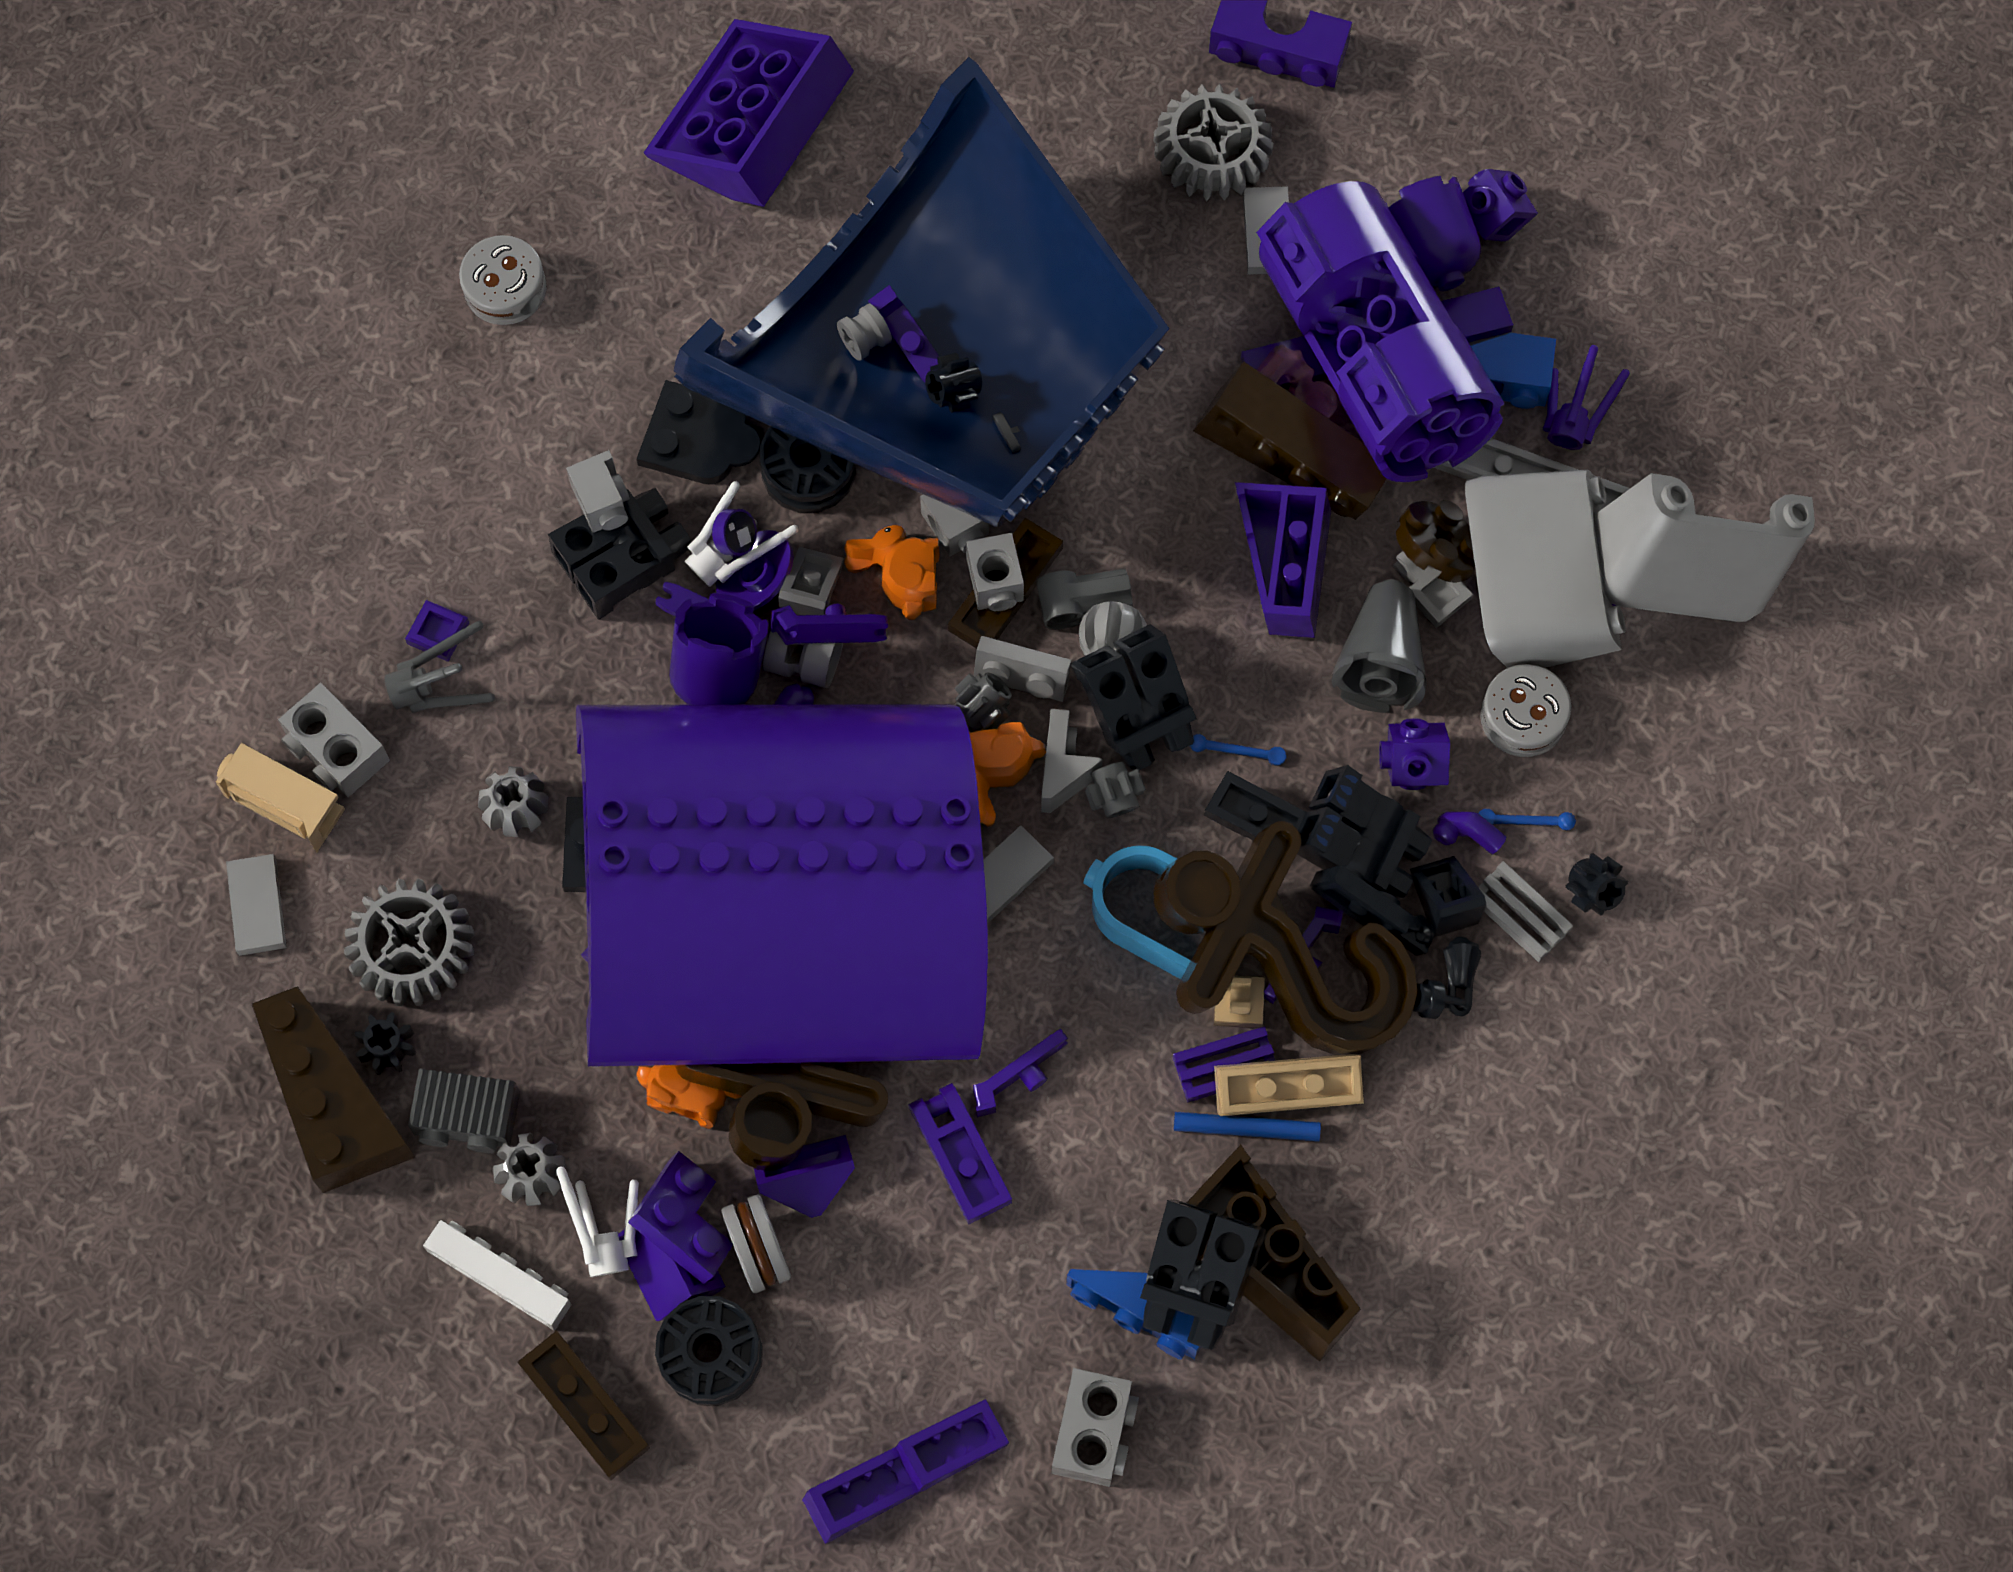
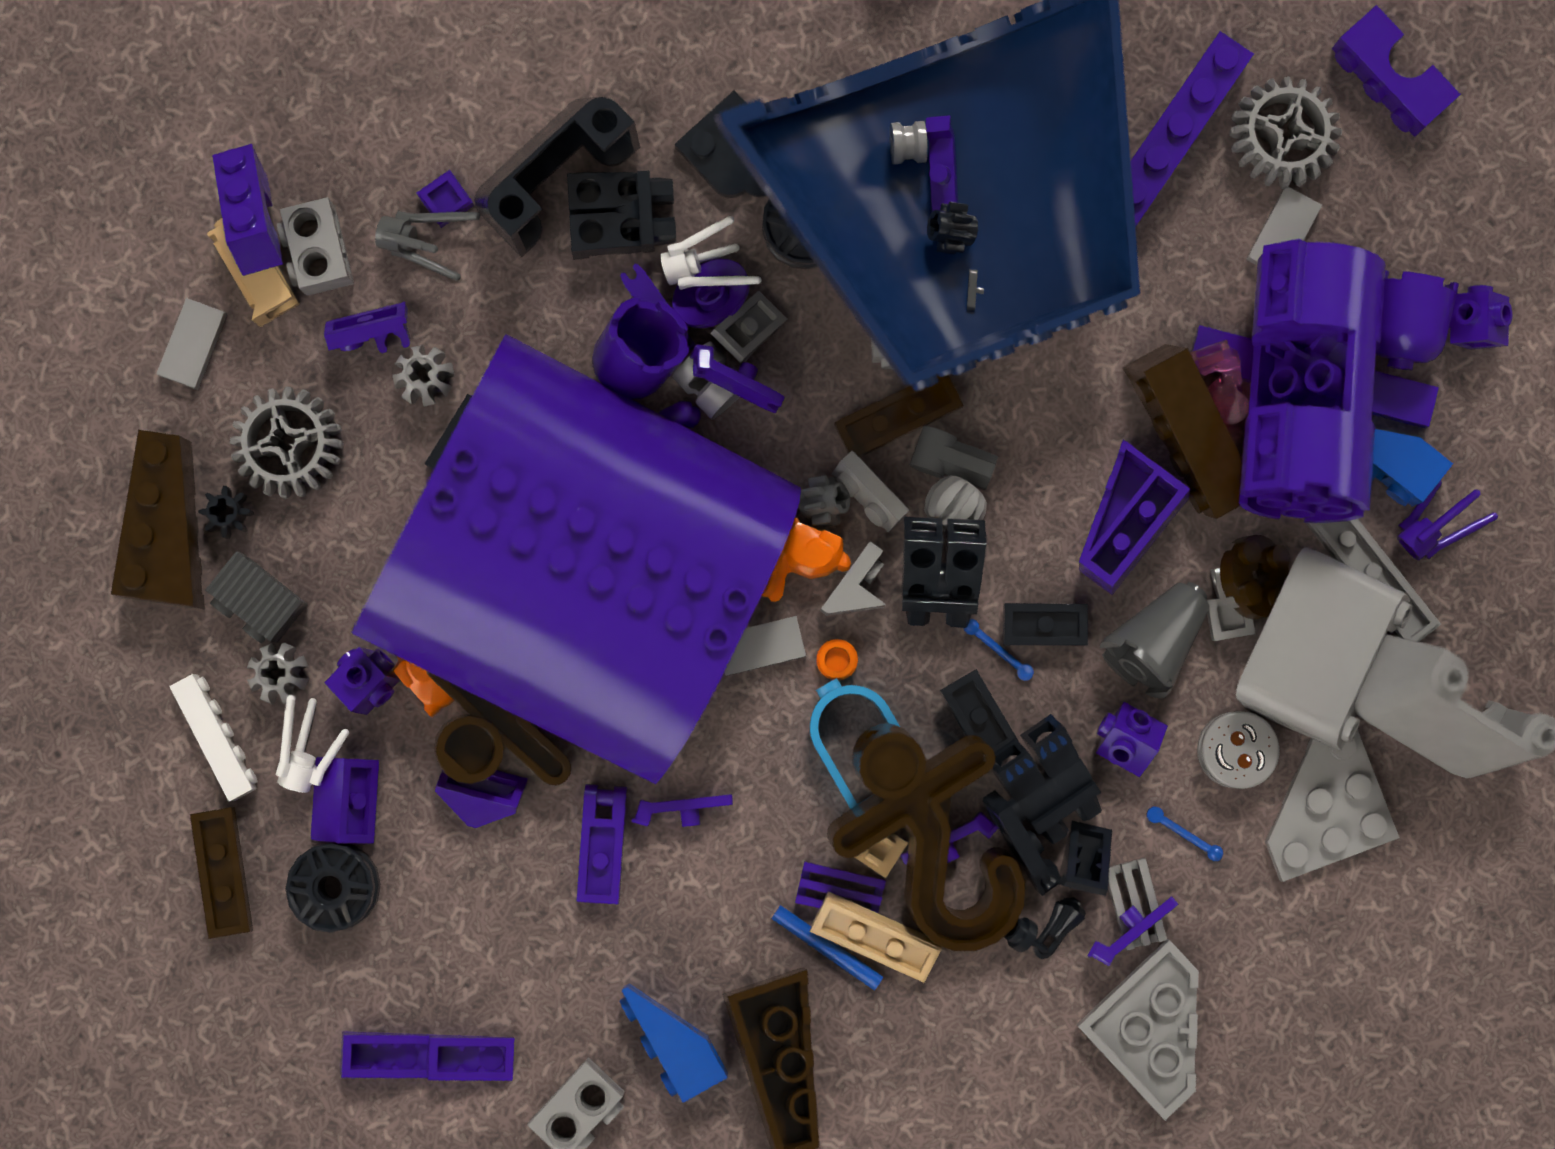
camera: 30 degrees right, 15 degrees up
(248, 732) = (244, 211): none -> dark purple arch
(414, 802) = (353, 330): none -> dark purple plate
(535, 486) = (587, 122): none -> black windscreen
(599, 491) = (622, 168): light grey brick -> none
(622, 1123) = (363, 679): none -> dark purple brick
(671, 1222) = (356, 777): dark purple plate -> none
(734, 532) = (709, 256): tile -> none
(756, 1243) = (409, 830): light grey head -> none
(906, 567) = (830, 355): orange animal -> none
(989, 555) = (891, 388): light grey brick -> none
(1085, 844) = (837, 659): none -> orange tile
(1114, 163) = (1185, 119): none -> dark purple brick
(1115, 789) = (883, 631): dark grey gear -> none
(1199, 1288) = (700, 1061): black hips -> none
(1268, 699) = (1045, 624): none -> black plate
(1470, 825) = (1138, 815): dark purple arm -> none
(1535, 924) = (1137, 926): none -> dark purple piece
(1596, 884) = (1204, 920): black gear -> none
(1612, 1018) = (1152, 1028): none -> light grey plate
(1648, 718) = (1329, 811): none -> light grey plate

